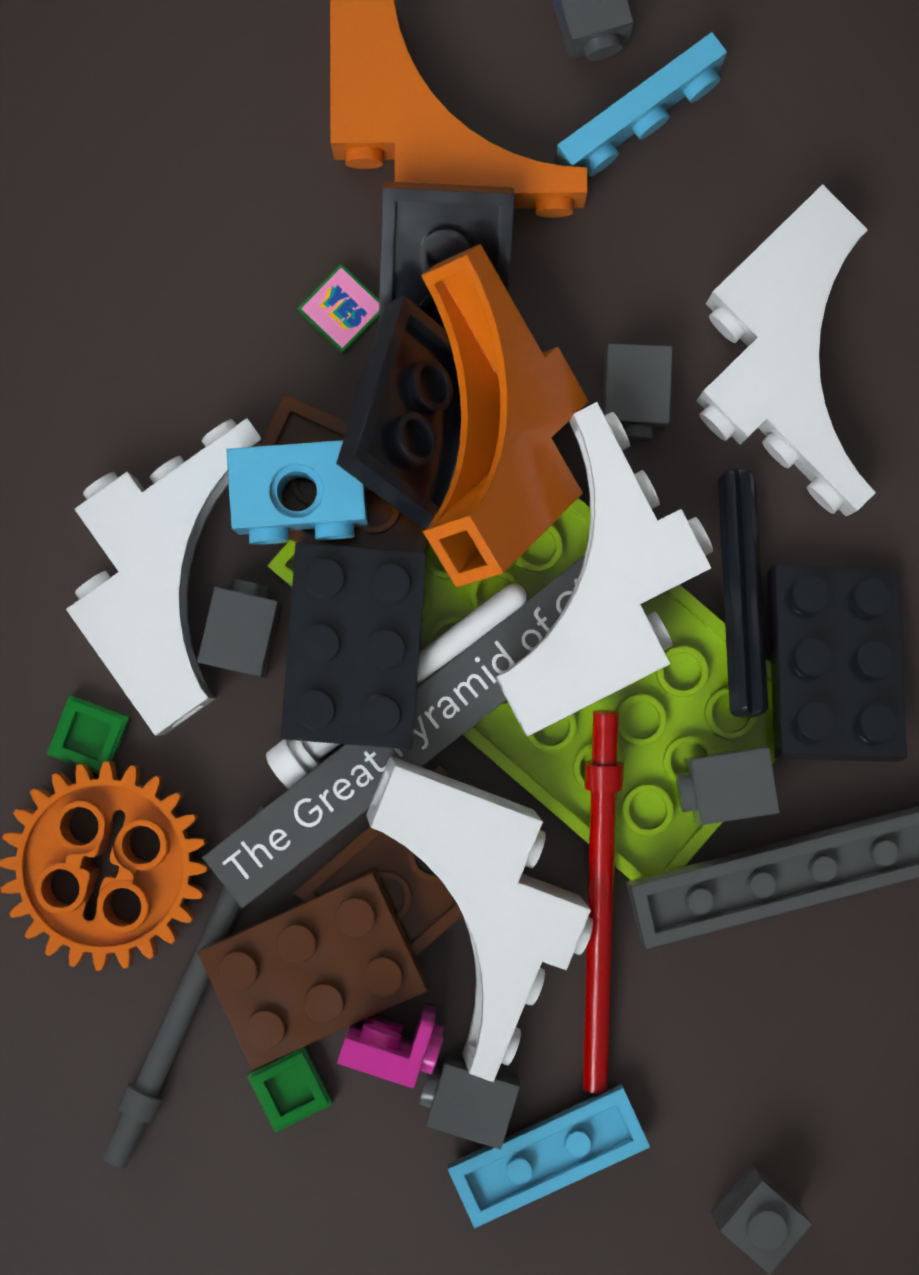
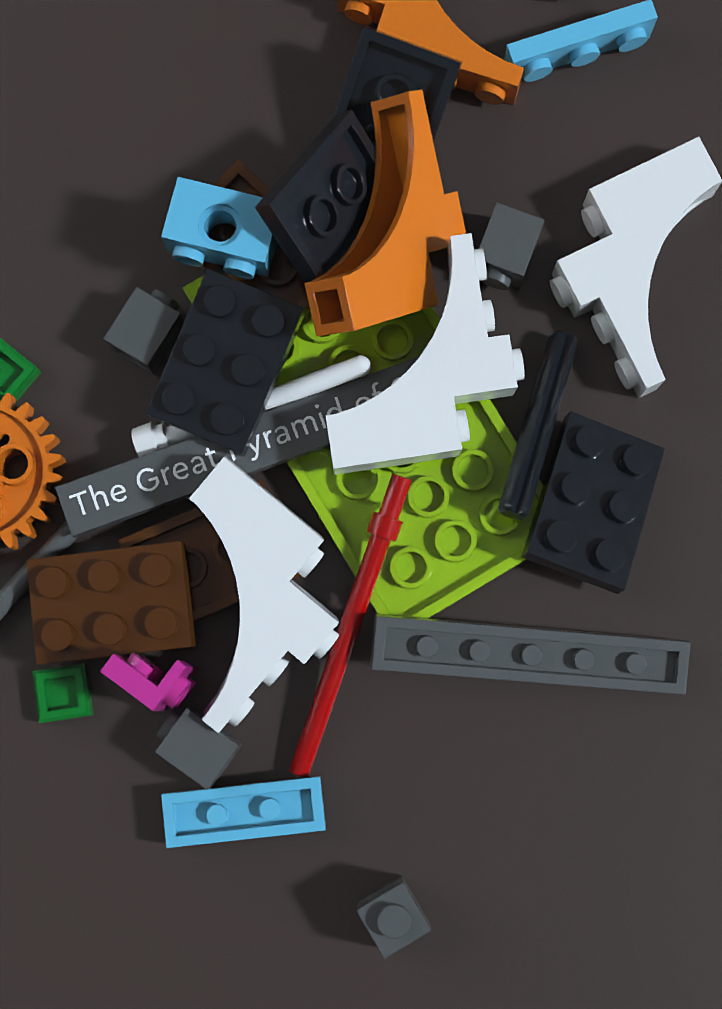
camera: 15 degrees right, 5 degrees down
(141, 612) = (77, 289): white arch -> none
(341, 309) = (302, 117): tile -> none
(728, 786) = (478, 564): dark grey brick -> none

